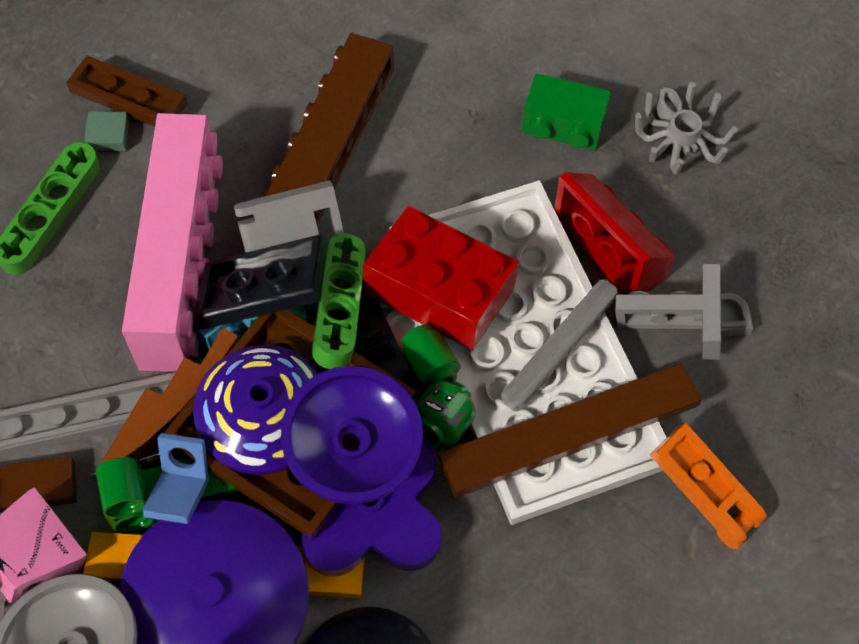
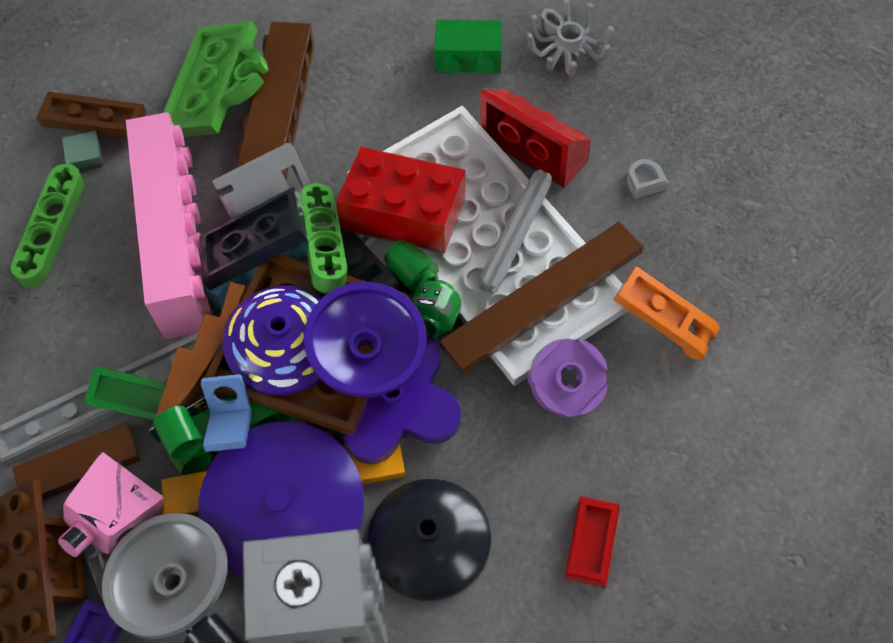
camera: 10 degrees left, 0 degrees up
(76, 423) = (124, 393): none -> green tile
(271, 83) = (215, 76): none -> bright green plate
(600, 538) = (590, 378): none -> medium lavender plate
(678, 311) = (605, 182): light grey bracket -> none

